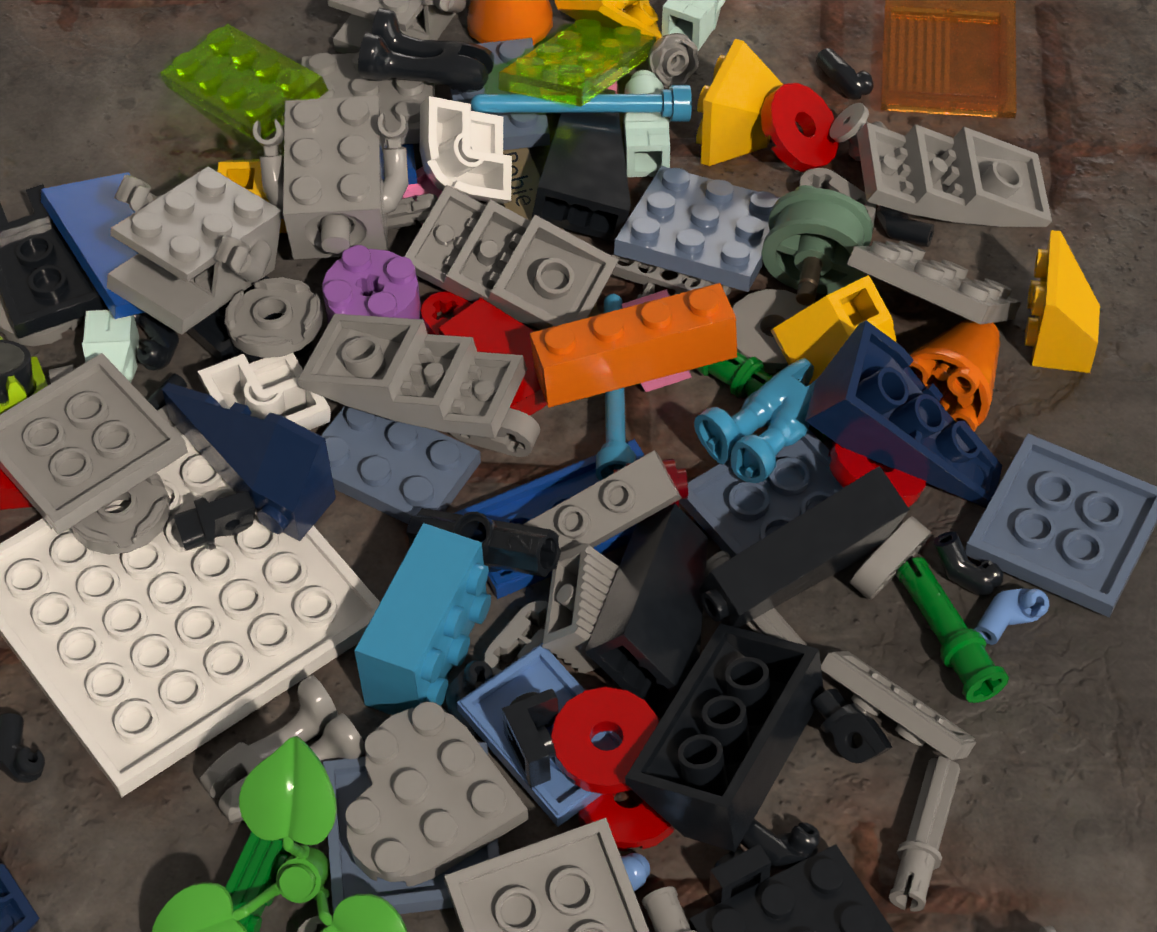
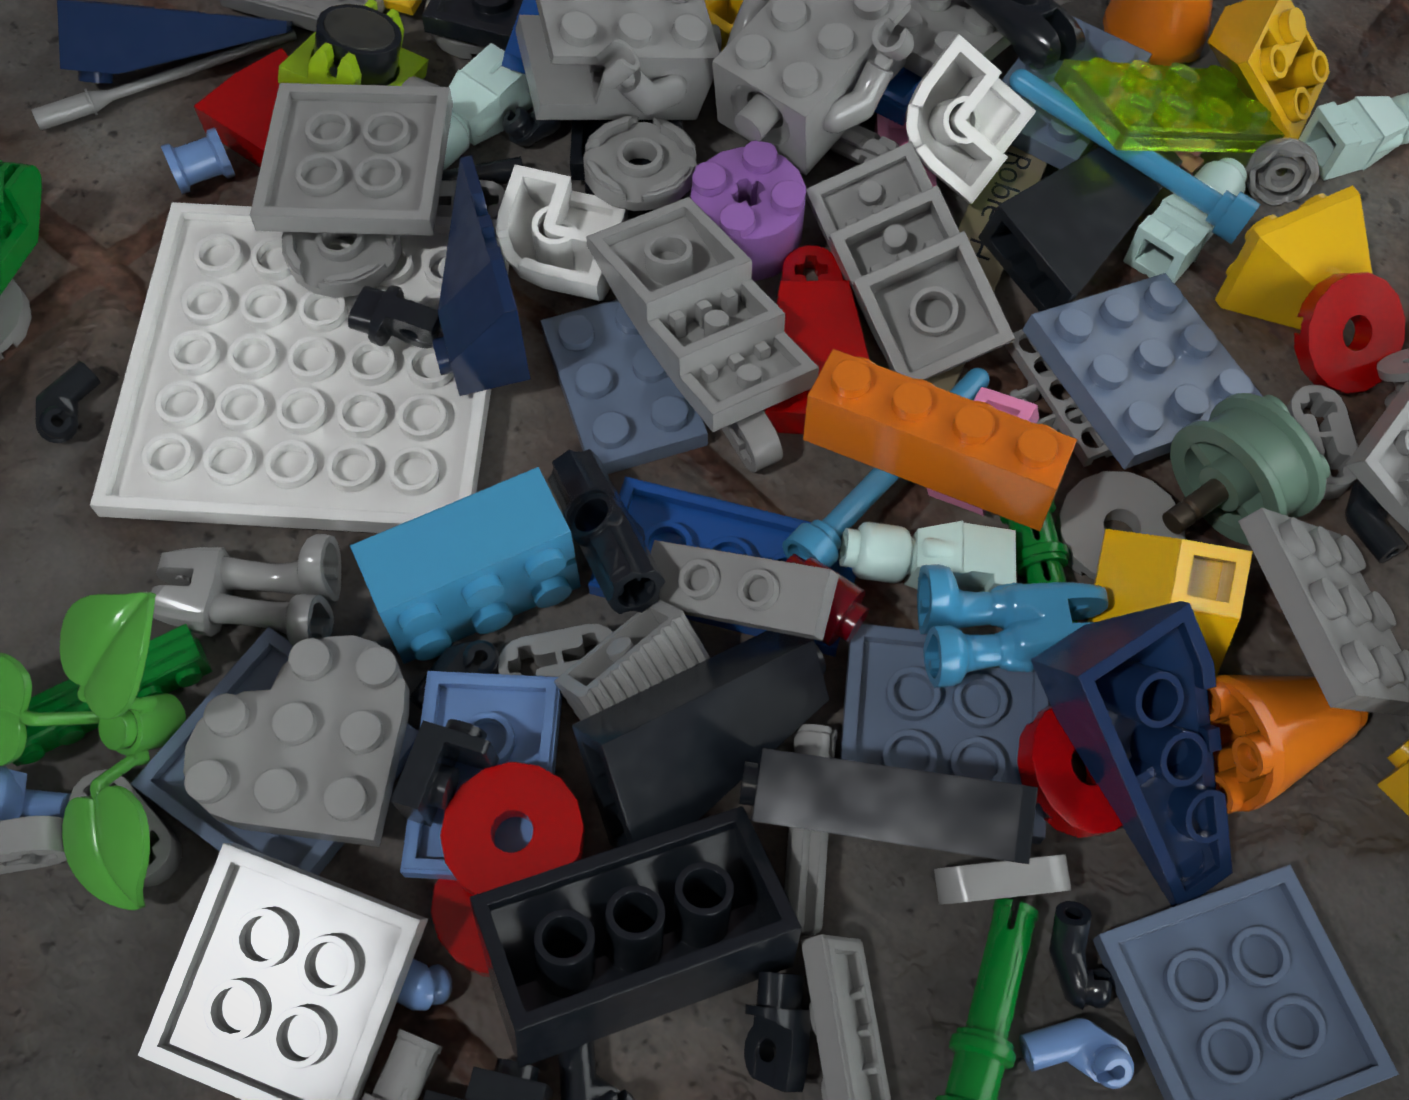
camera: 40 degrees right, 10 degrees up
(674, 428) = (975, 553): none -> light aqua piece

